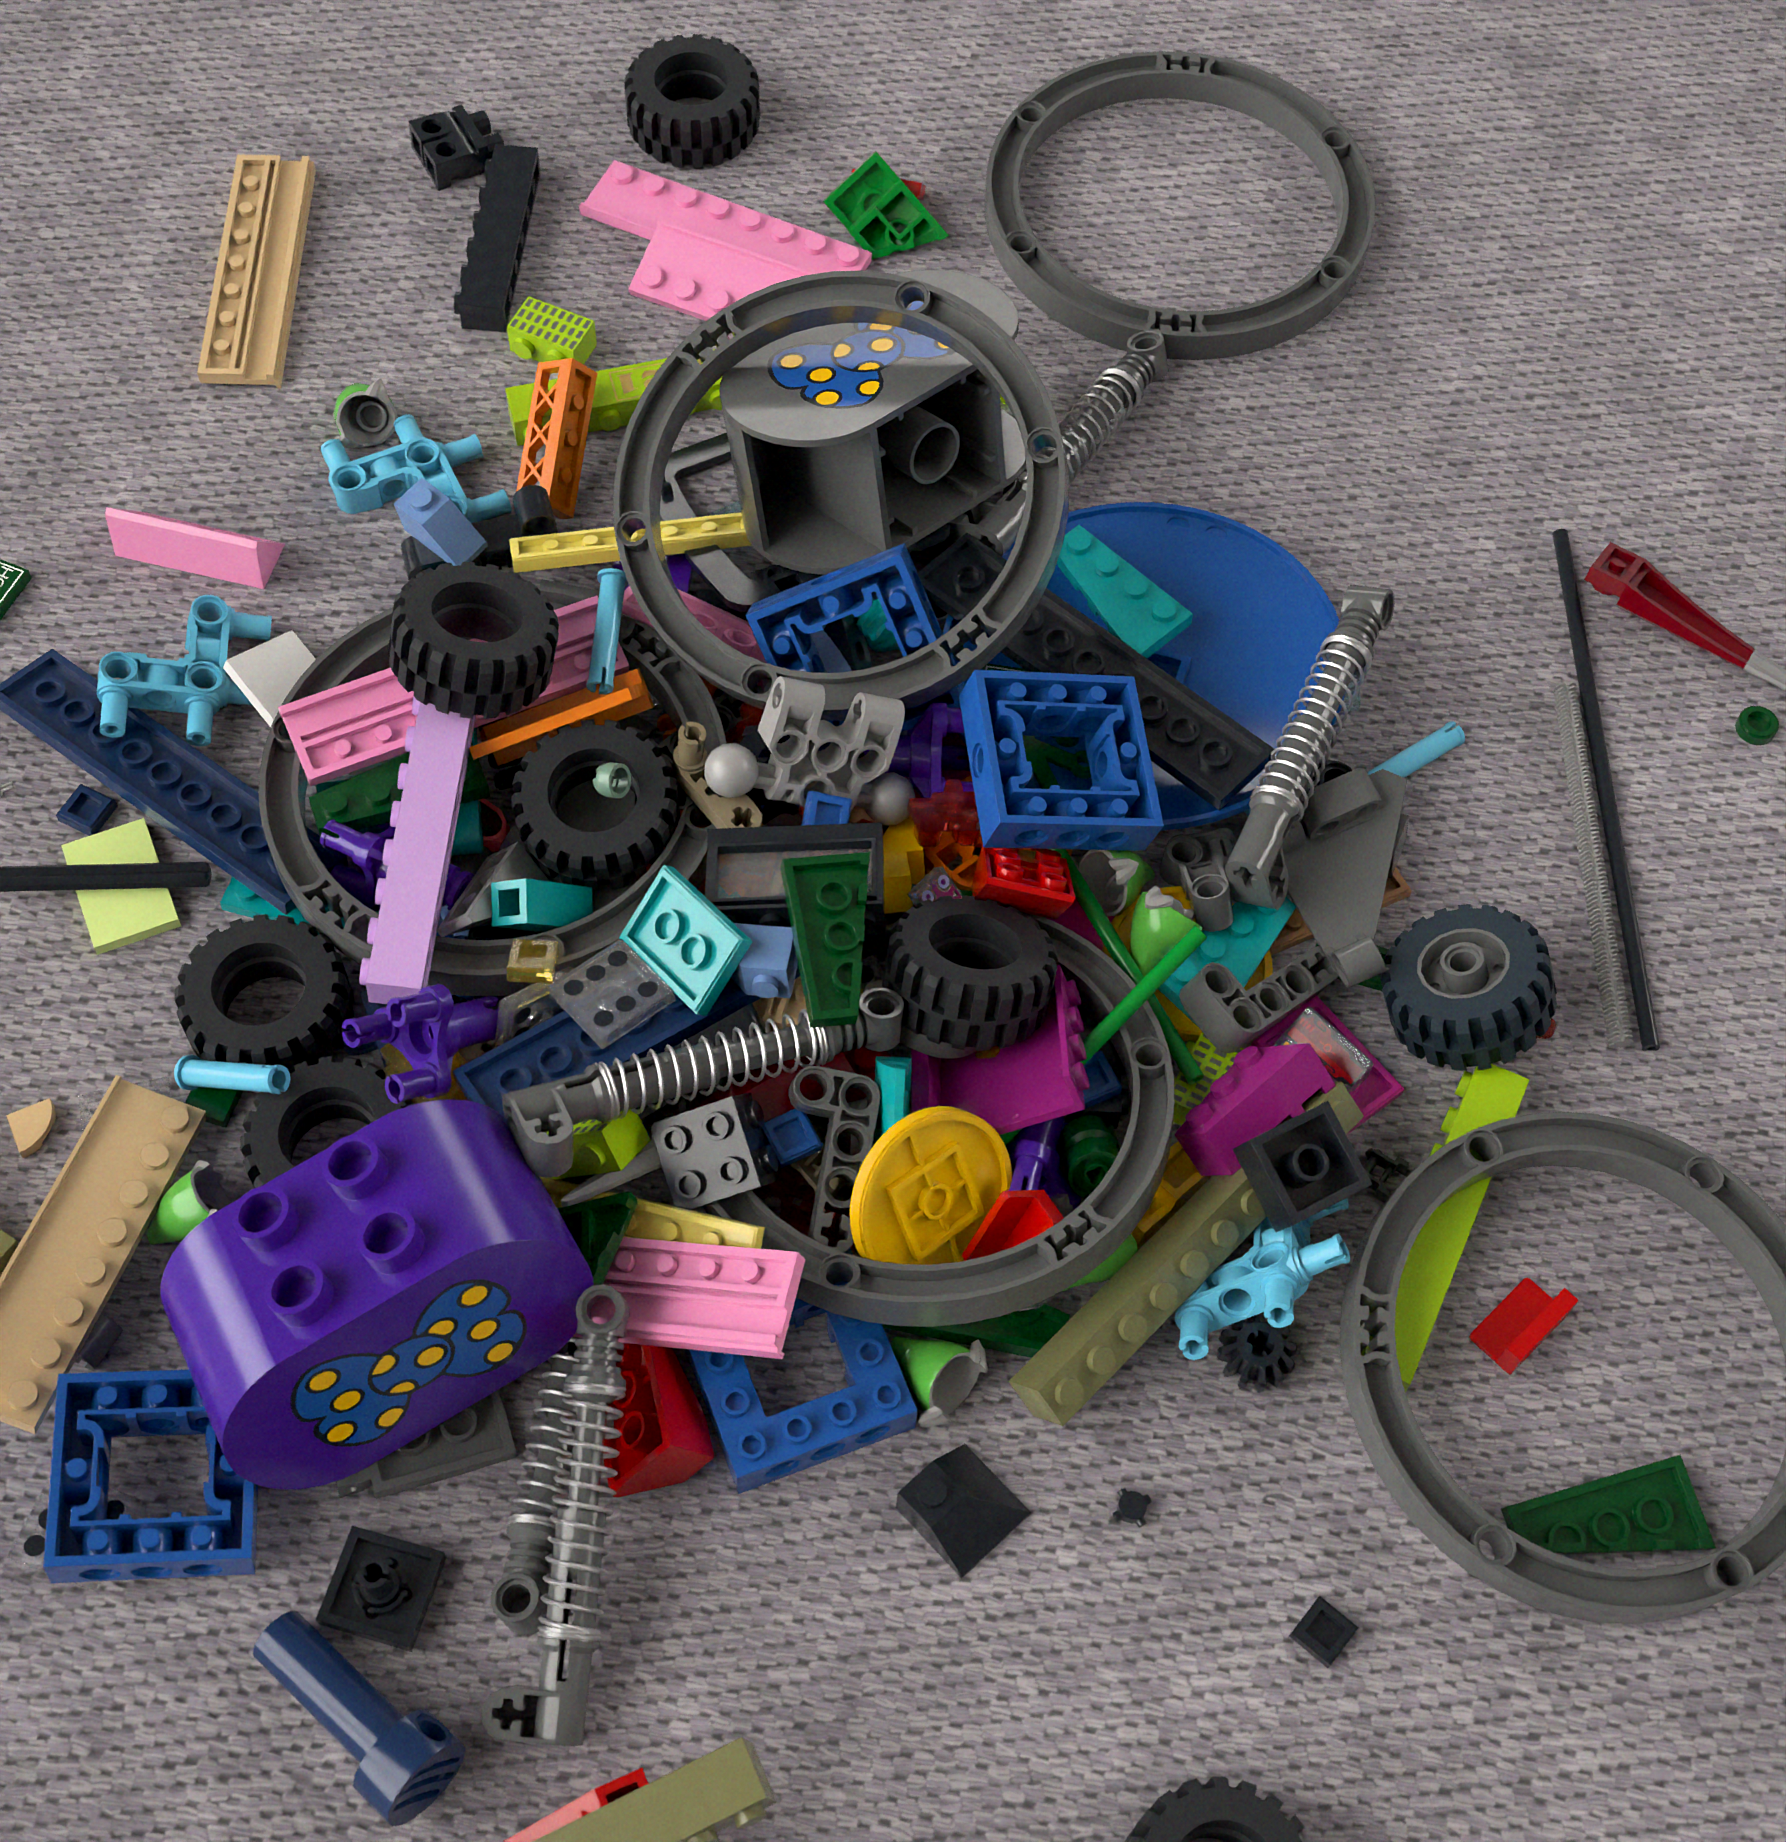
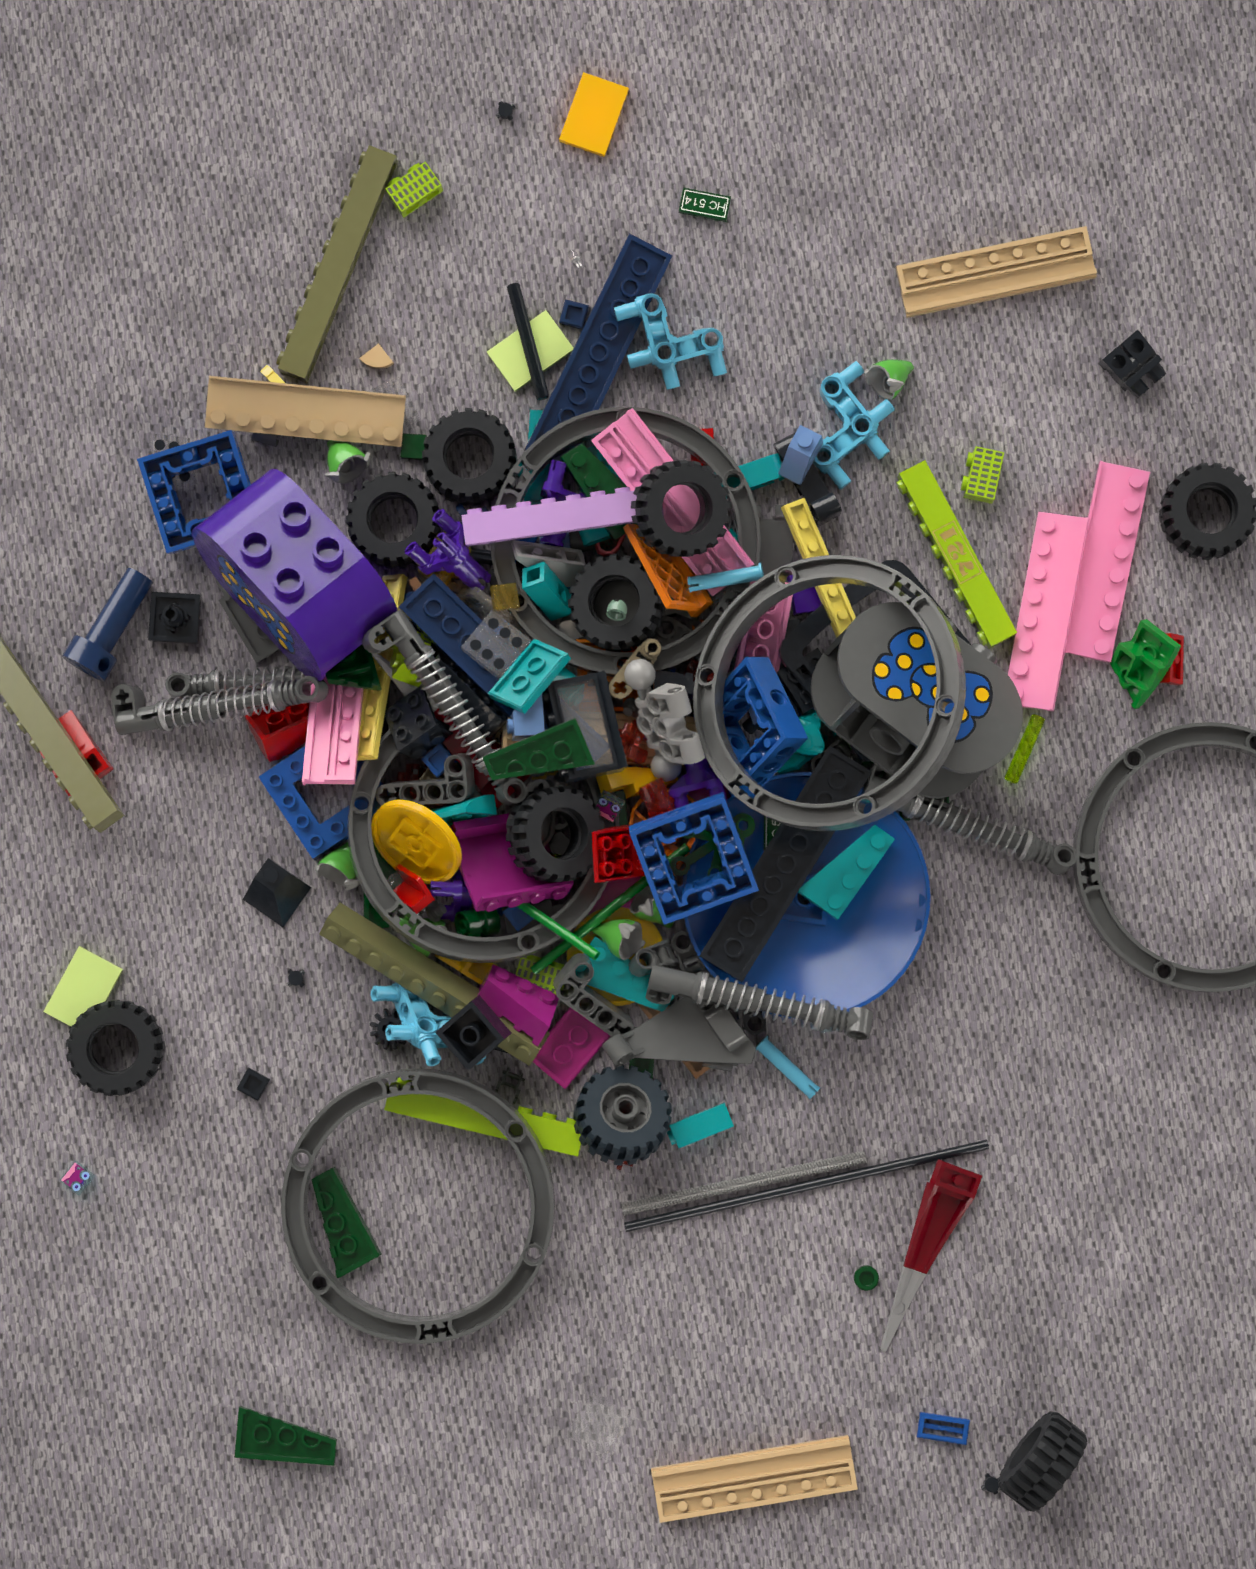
camera: 85 degrees right, 25 degrees up
(192, 547) = (768, 309): bright pink slope -> none
(194, 1073) = (414, 456): medium azure pin -> none
(270, 672) = (680, 393): white tile -> none
(498, 238) = (1059, 417): black brick -> none
(563, 434) = (890, 507): orange fence -> none
(826, 809) = (632, 733): blue tile -> none
(1336, 1052) = (570, 1040): slope -> none
(1489, 877) = (700, 1125): none -> teal brick
(1521, 1323) = (439, 1167): red panel -> none

